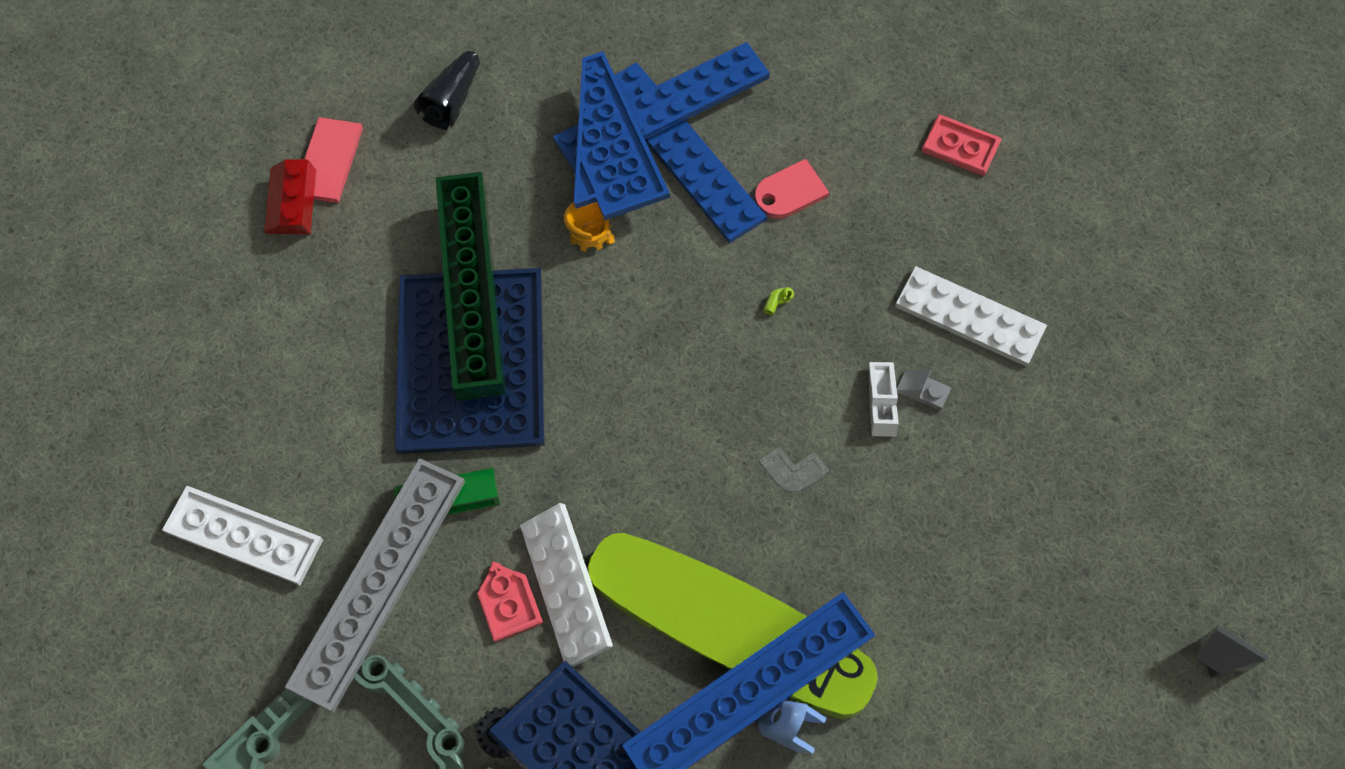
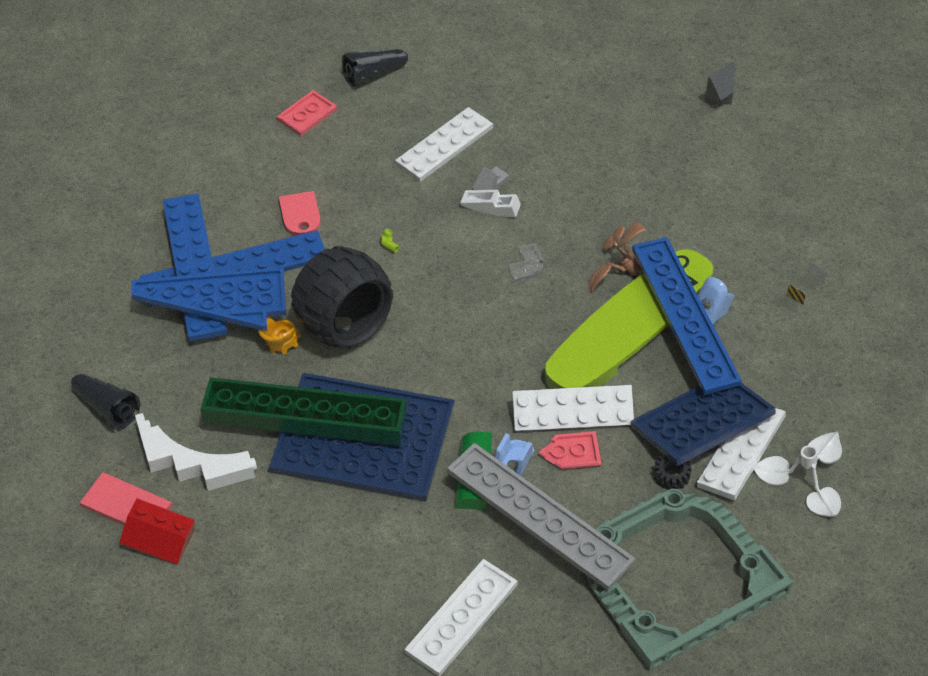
camera: 75 degrees left, 15 degrees down
(398, 168) = (216, 469): none -> white arch
(454, 527) = (514, 451): none -> light blue piece
(635, 248) = (341, 285): none -> black tyre
(836, 582) = (628, 262): none -> nougat plant
(1064, 182) = (365, 65): none -> black cone

